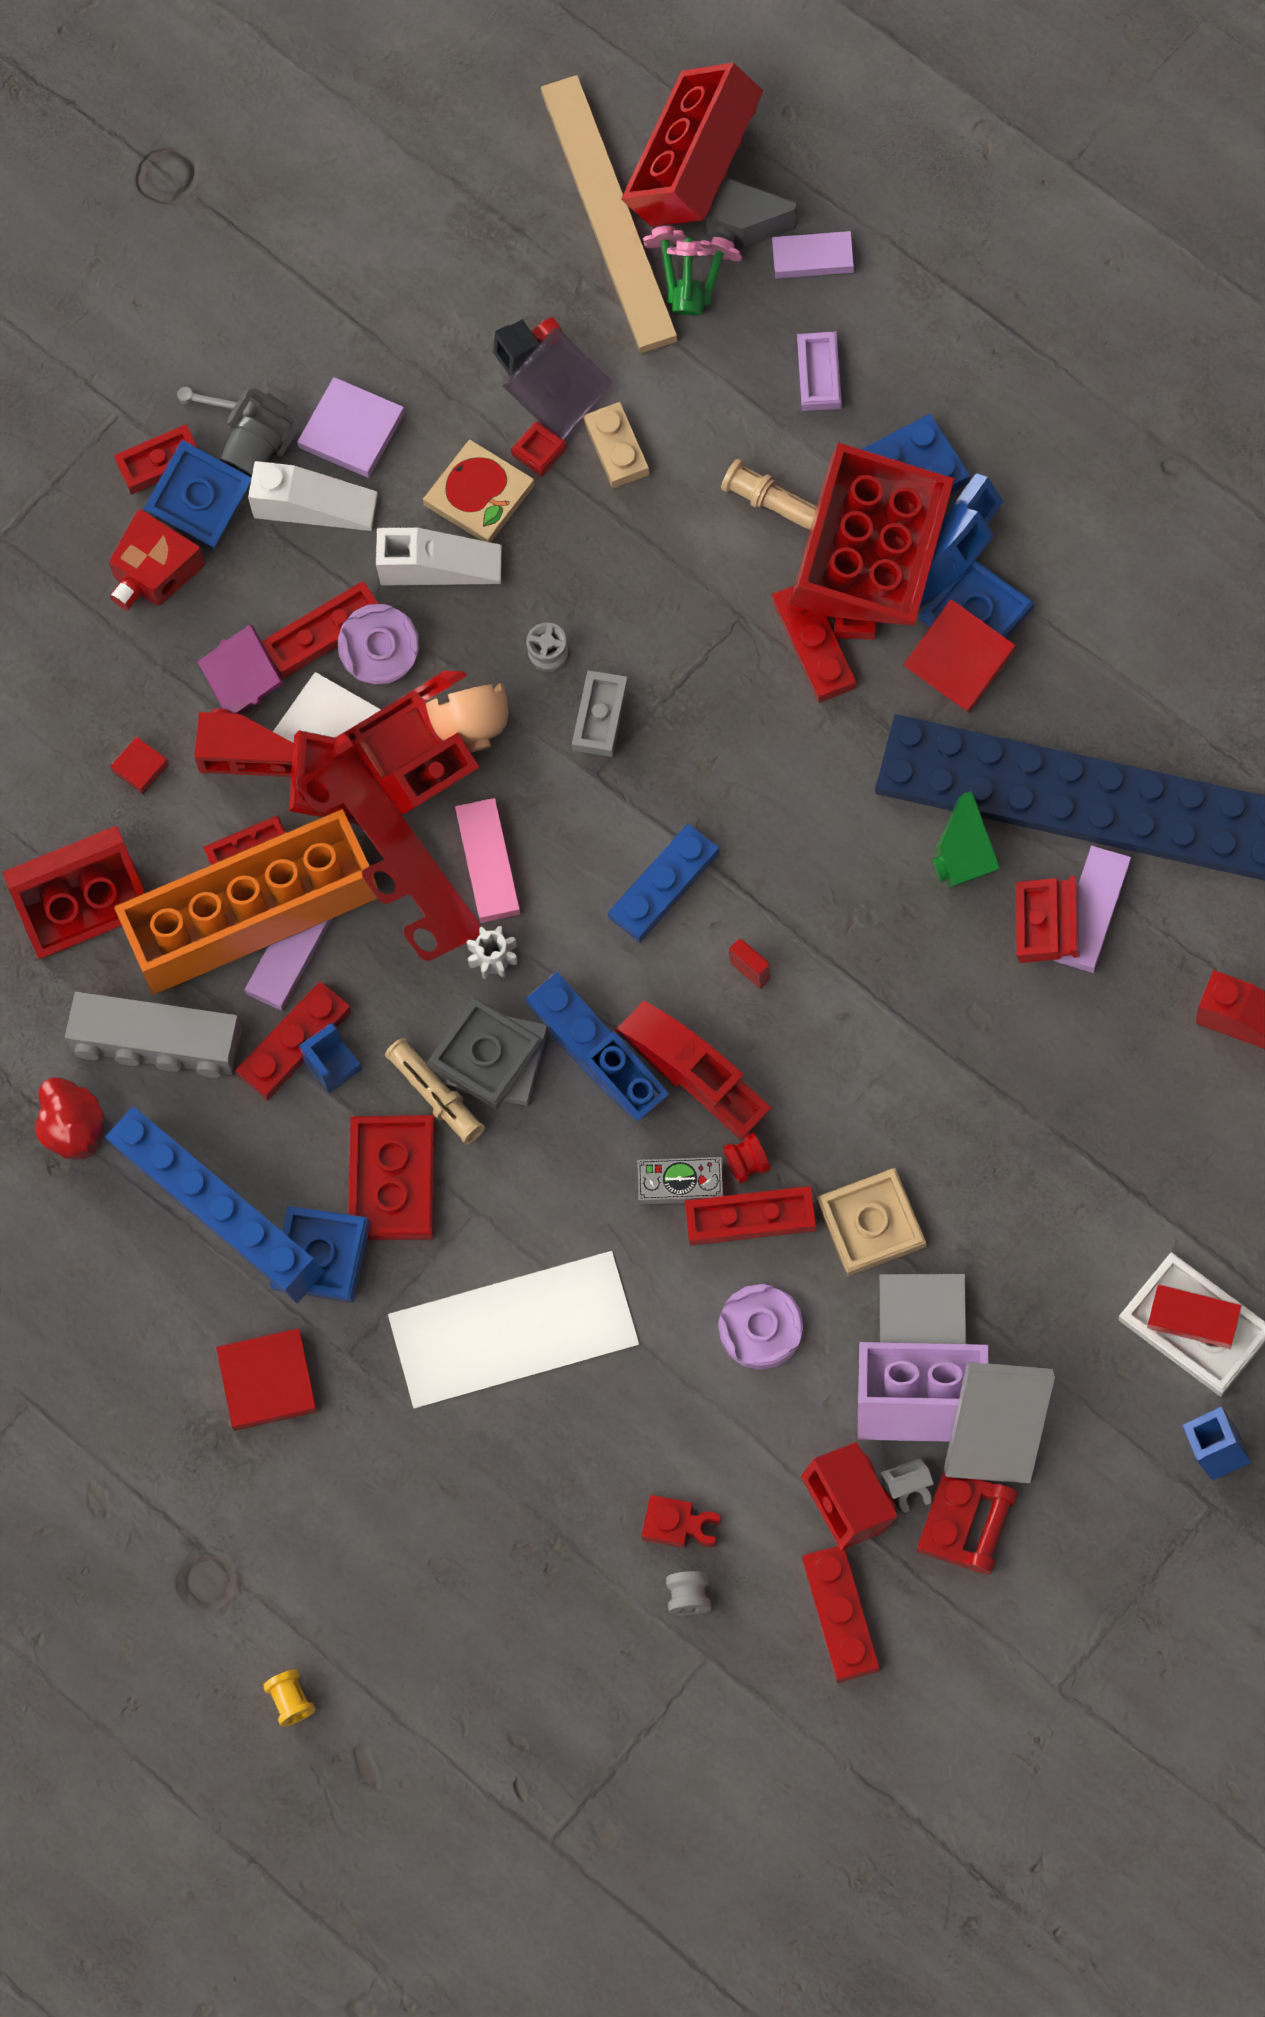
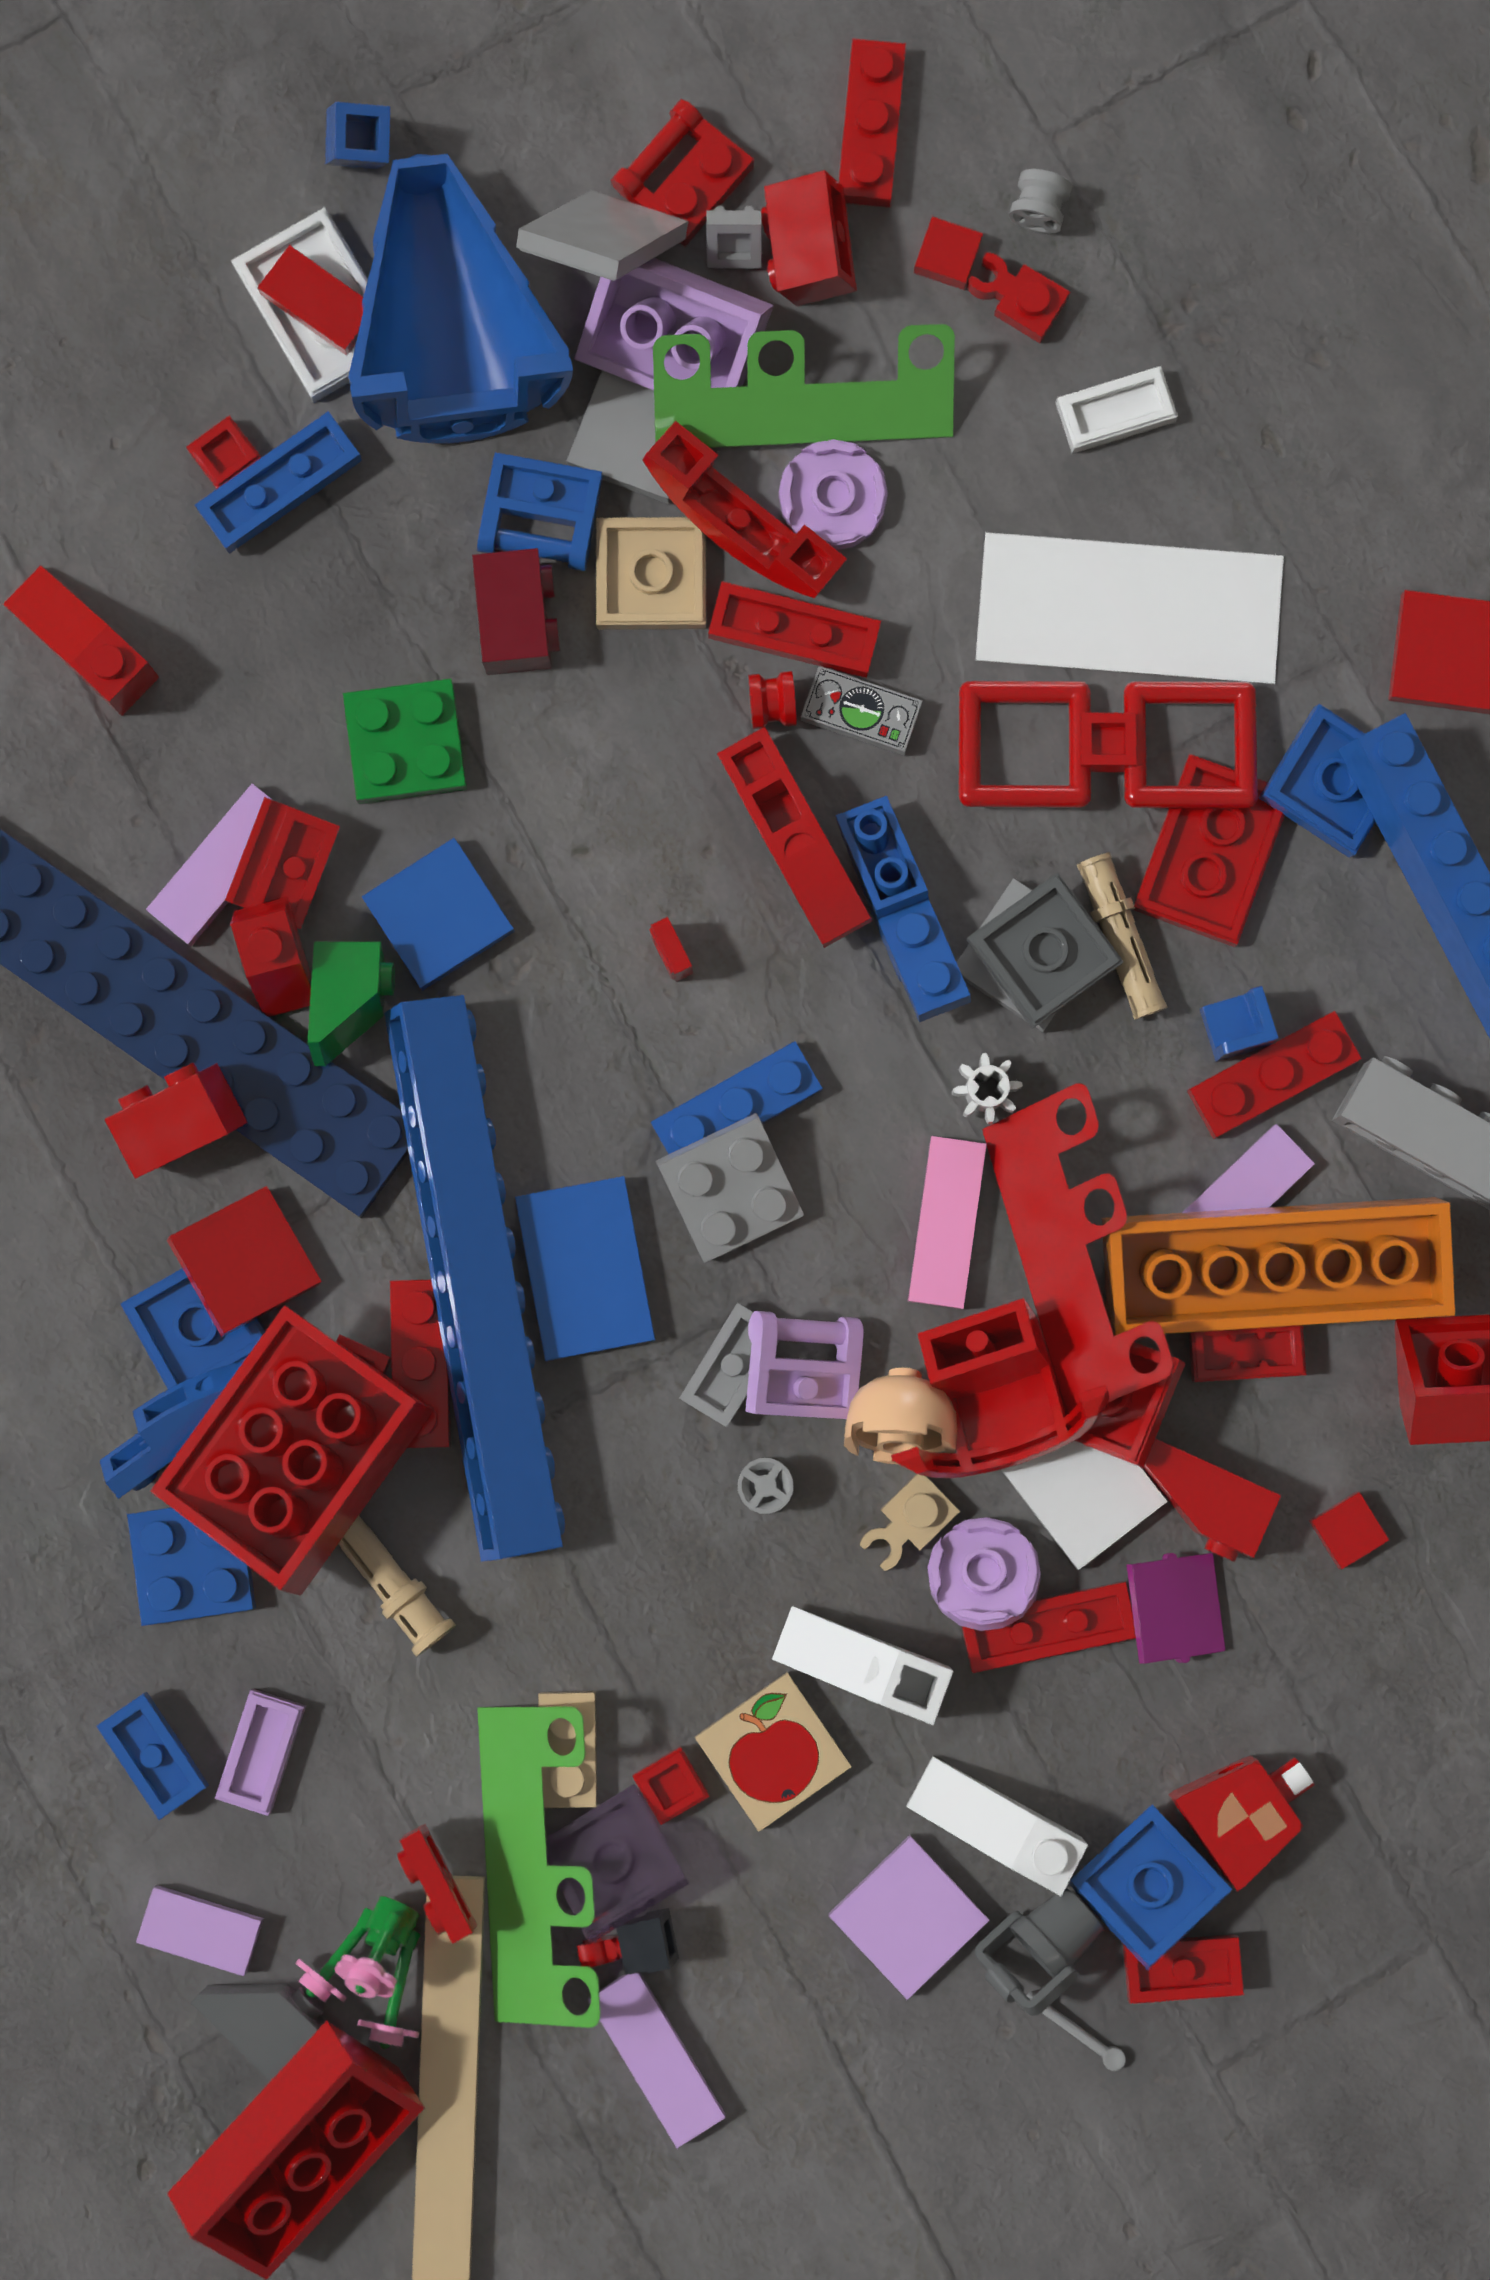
camera: 165 degrees left, 15 degrees up
(436, 661) = (915, 1514): none -> tan plate
(483, 287) = (658, 2058): none -> lavender tile
(493, 1218) = (1108, 744): none -> red bar
(544, 714) = (797, 1384): none -> lavender plate
(575, 1466) = (1116, 409): none -> white tile
(614, 350) = (518, 1878): none -> bright green piece
(646, 823) = (730, 1188): none -> light grey plate
(657, 319) = (446, 1907): none -> red plate
(726, 740) = (585, 1268): none -> blue tile
(744, 1535) = (948, 253): none -> red tile
(800, 702) = (474, 1278): none -> blue brick
(811, 1366) = (793, 412): none -> bright green piece
(818, 1275) = (735, 520): none -> red slope
(888, 340) = (152, 1755): none -> blue plate
(925, 932) = (438, 914): none -> blue tile
(957, 1151) = (513, 611): none -> dark red brick
(971, 1244) = (545, 494): none -> blue plate
(999, 1040) = (404, 741): none -> green plate
(1029, 855) = (272, 956): none -> red slope
(1044, 721) = (176, 1119): none -> red brick
(1098, 1334) = (448, 318): none -> blue cone
(1167, 1181) = (278, 482): none -> blue plate
(1216, 1191) = (223, 452): none -> red tile

